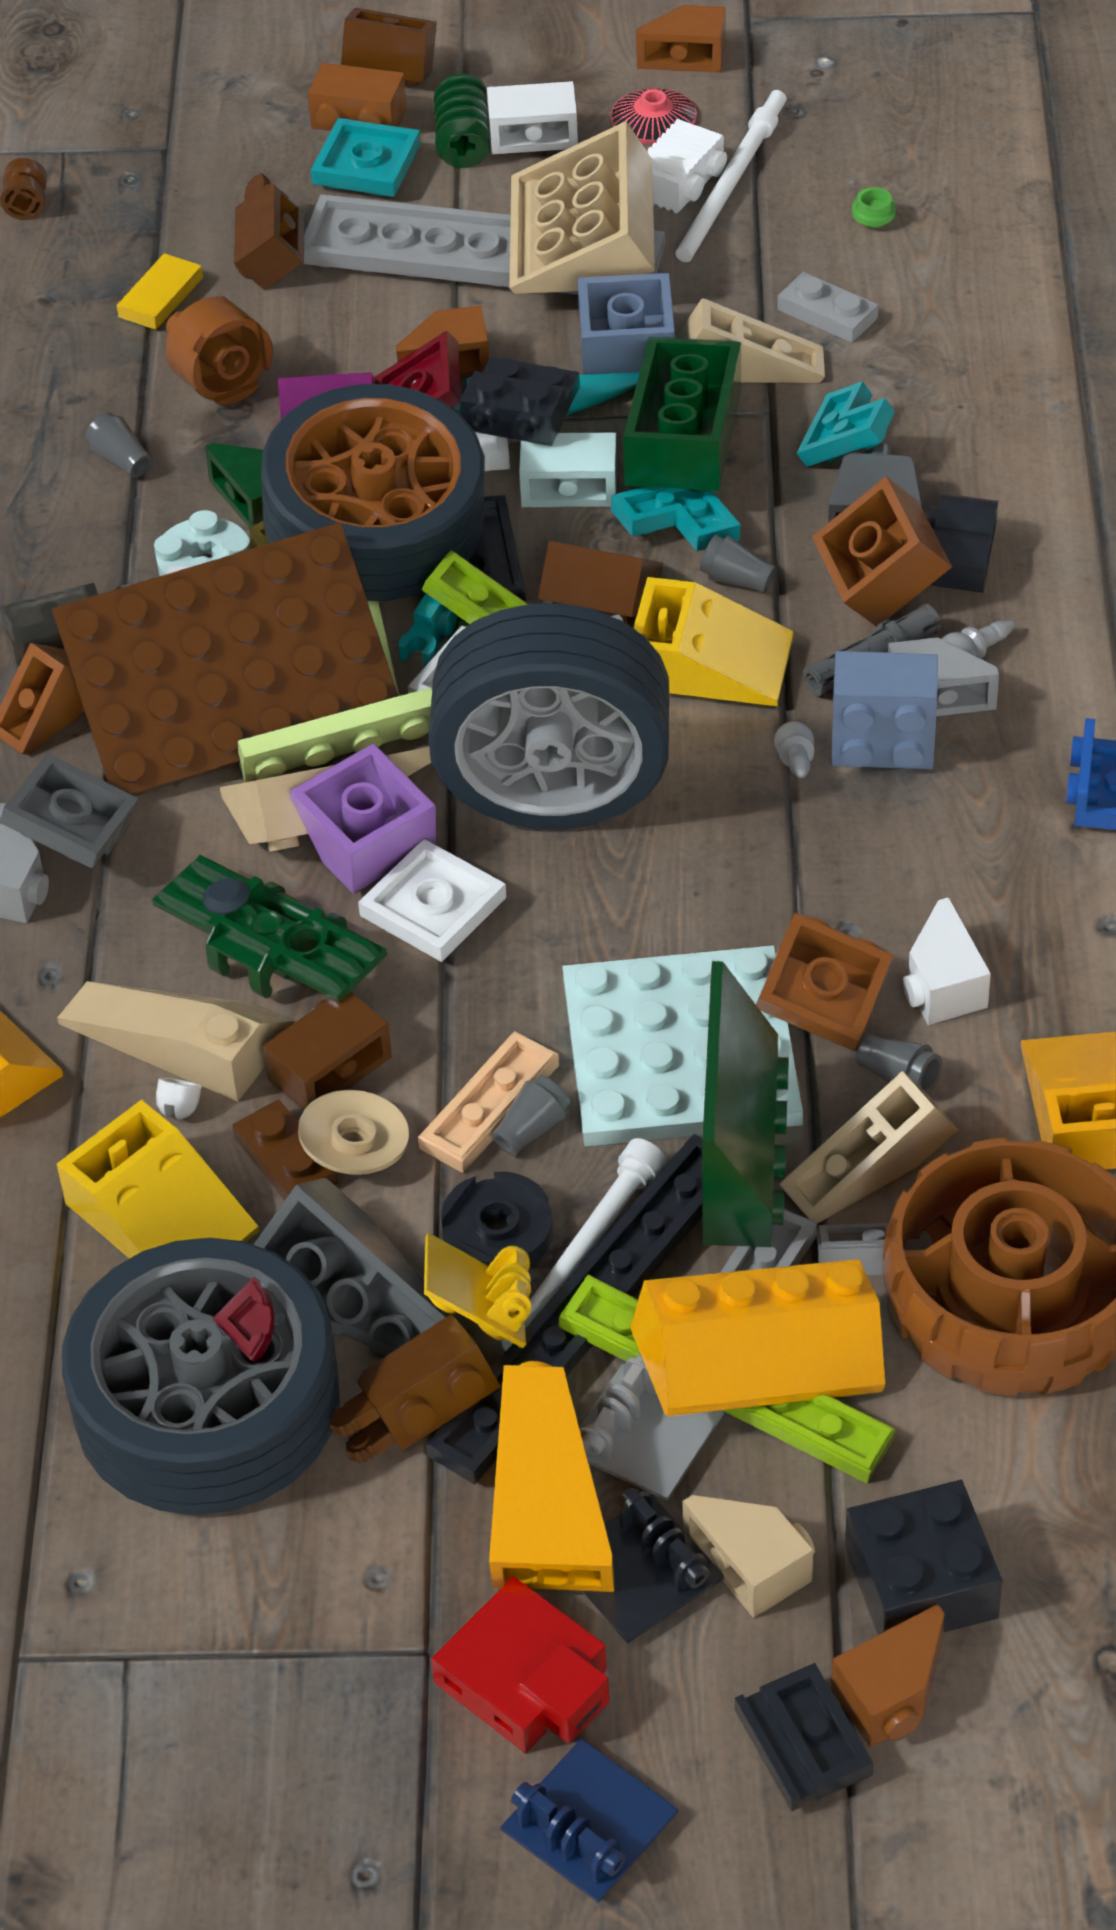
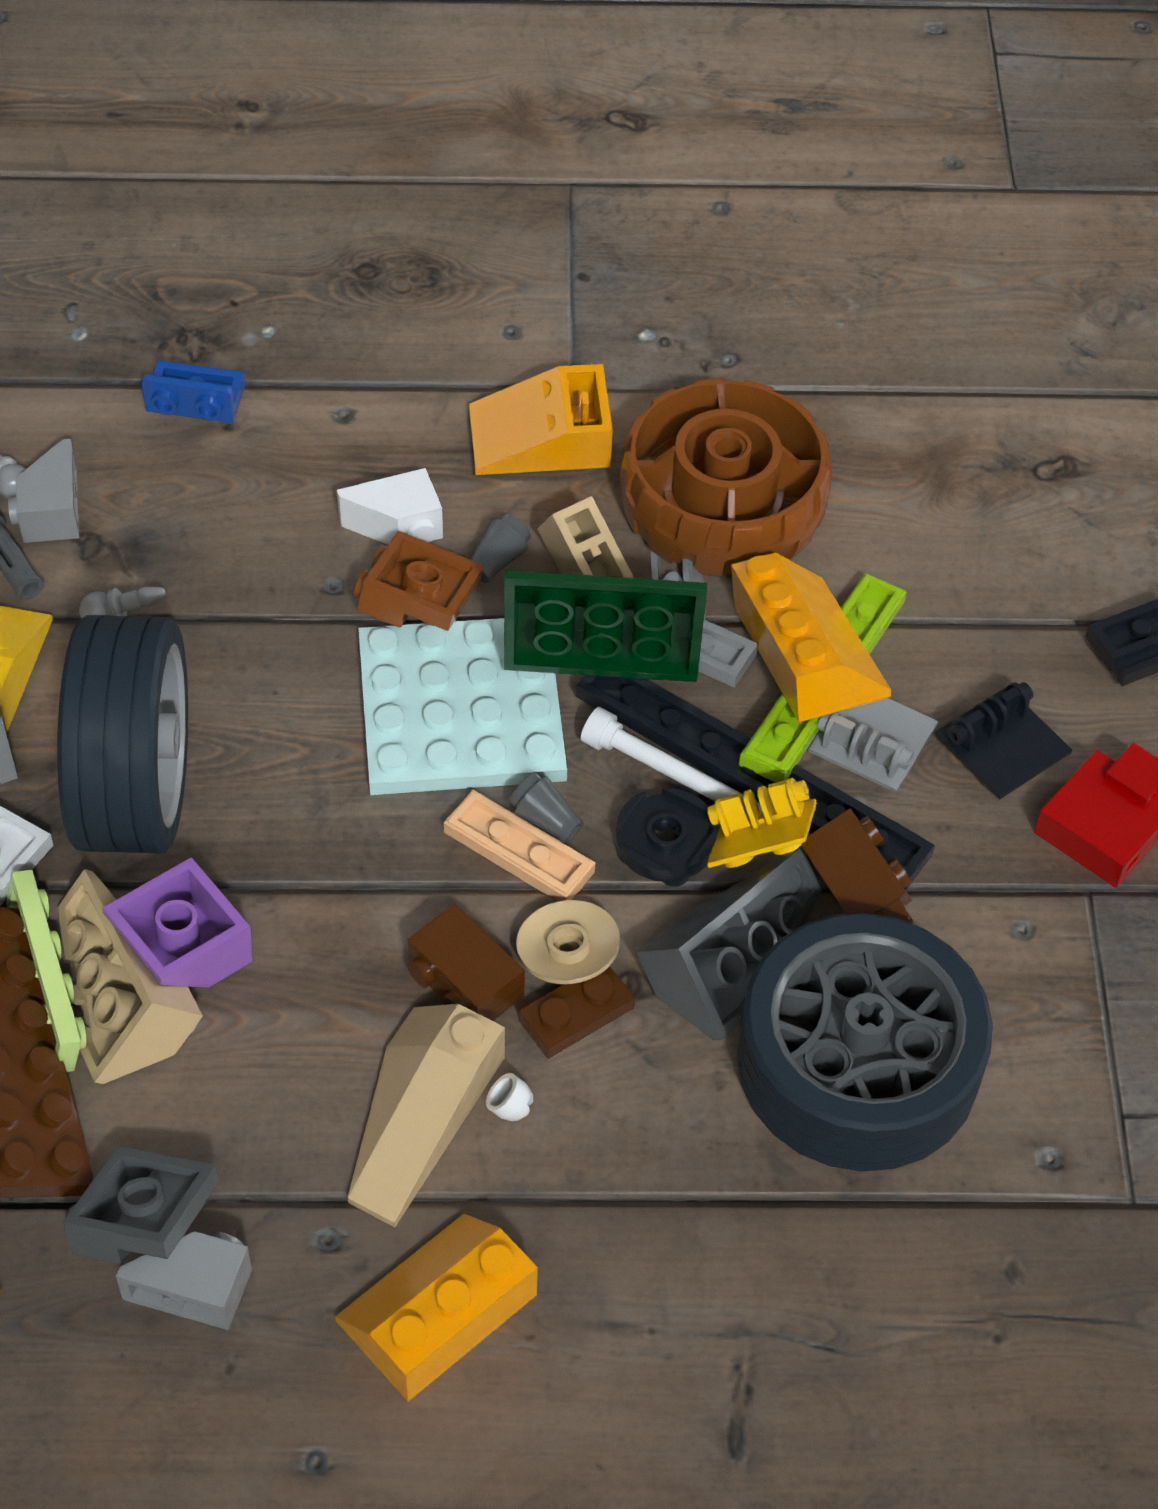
camera: 95 degrees left, 5 degrees up
(149, 1186) = (646, 1105): yellow slope -> none
(248, 928) = (327, 1026): dark green piece -> none
(249, 1319) = (835, 978): dark red tile -> none
(432, 900) = (280, 887): white plate -> none
(544, 1495) = (958, 784): light orange slope -> none
(752, 1547) = (991, 659): tan slope -> none
(884, 709) = (104, 520): sand blue brick -> none
(890, 1677) = (1089, 578): dark orange slope -> none
(923, 1554) = (995, 556): black brick -> none

